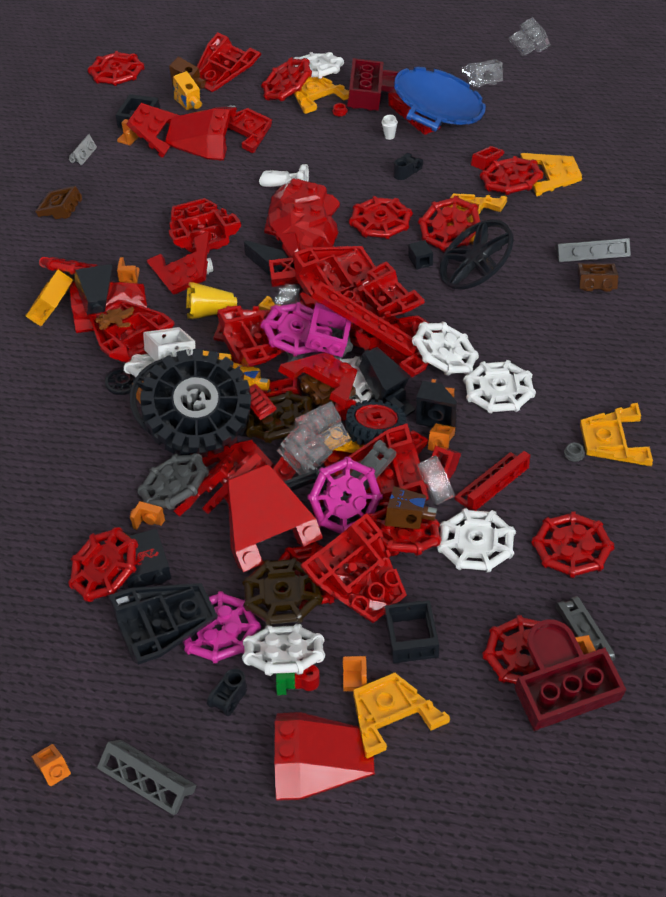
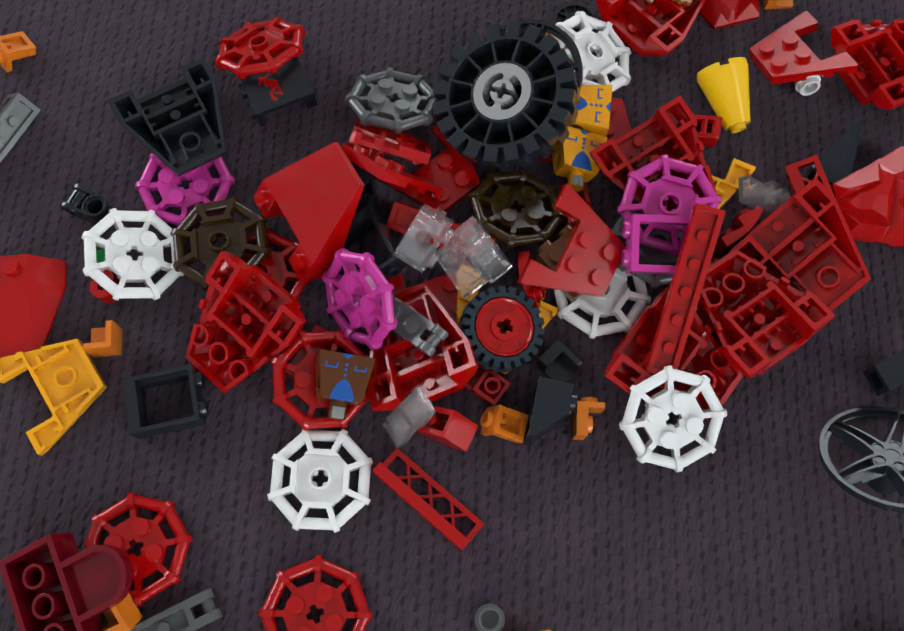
camera: 80 degrees right, 25 degrees up
(148, 513) = (346, 79): orange bracket -> none
(161, 347) = (631, 37): white window -> none
(260, 400) = (549, 170): red slope -> none
(382, 373) = (604, 332): black slope -> none
(510, 386) = (630, 515): white plate -> none

